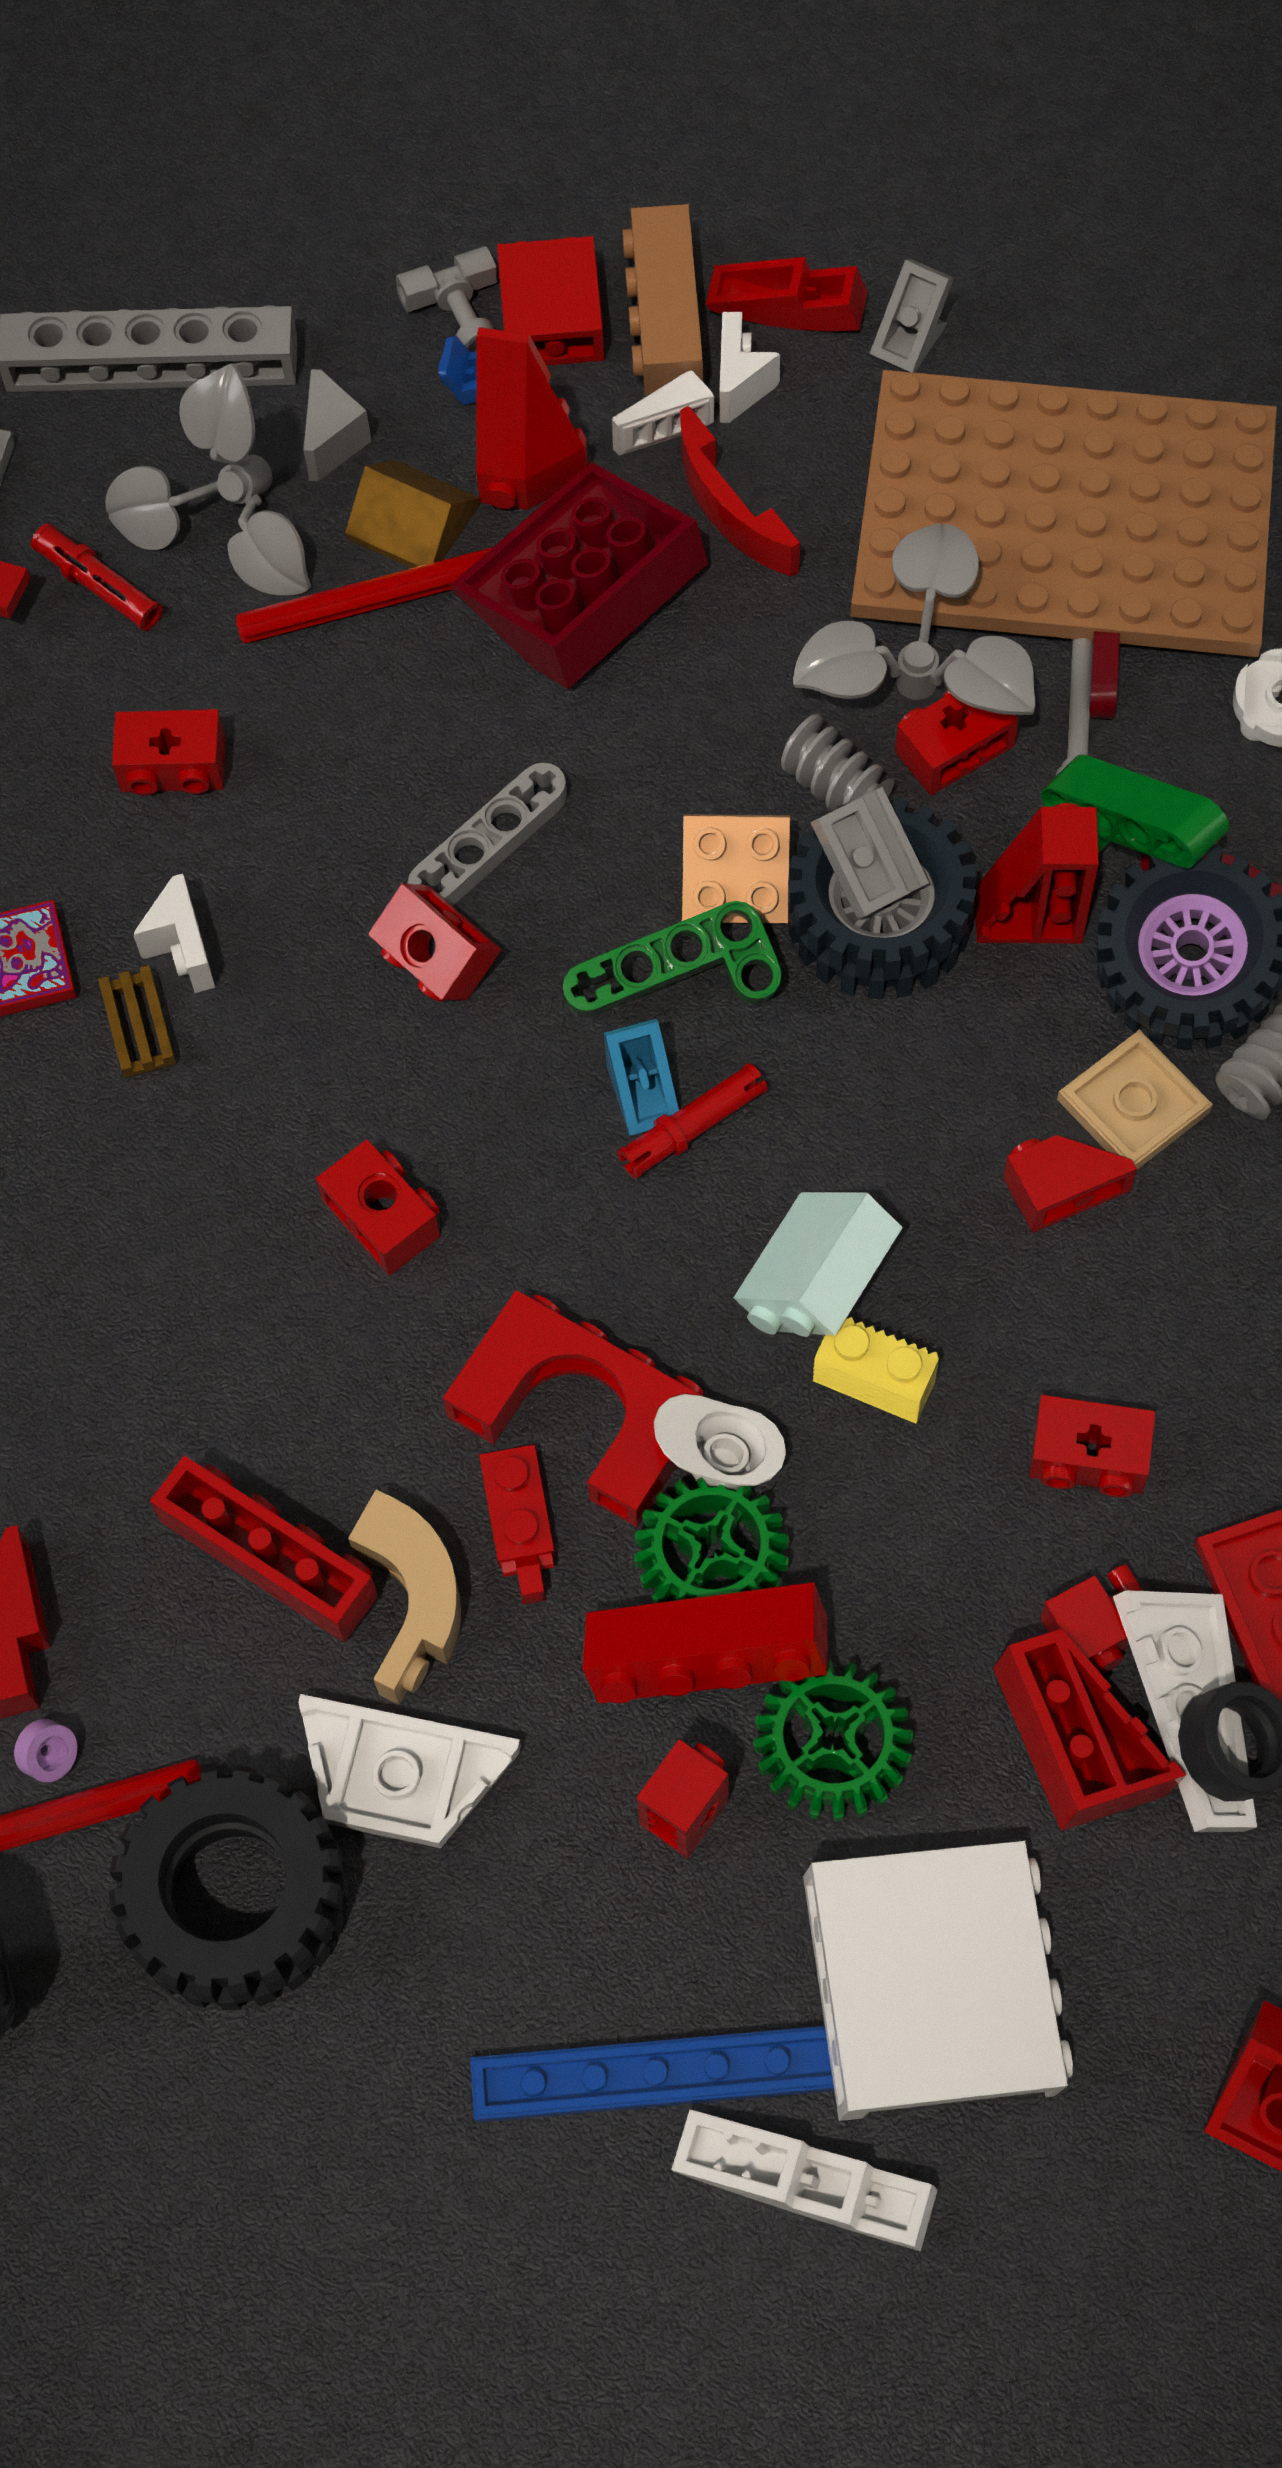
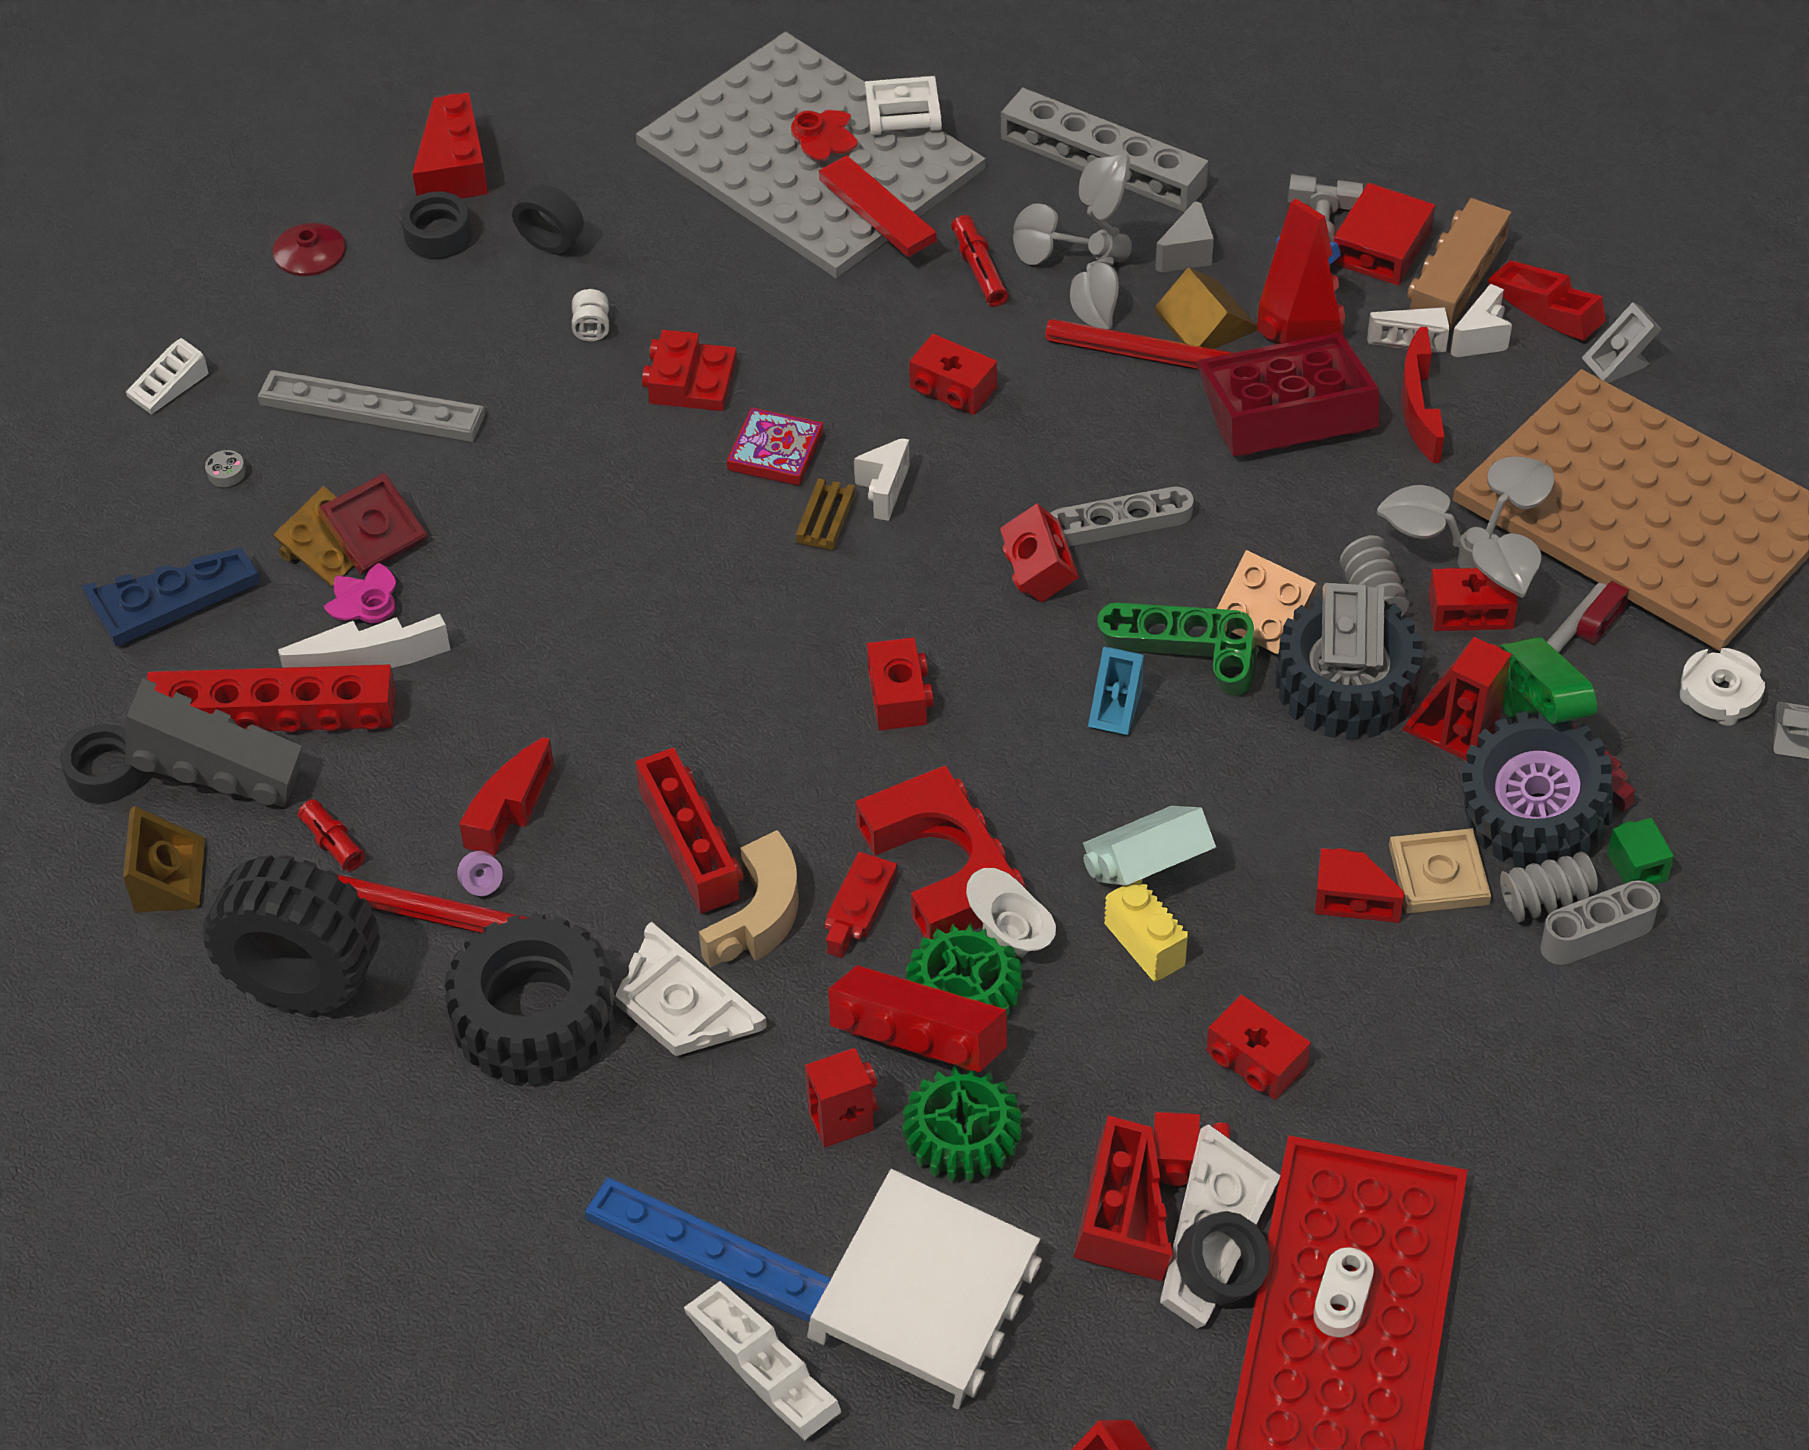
camera: 30 degrees right, 15 degrees down
(674, 1132) = (1132, 734): red pin -> none

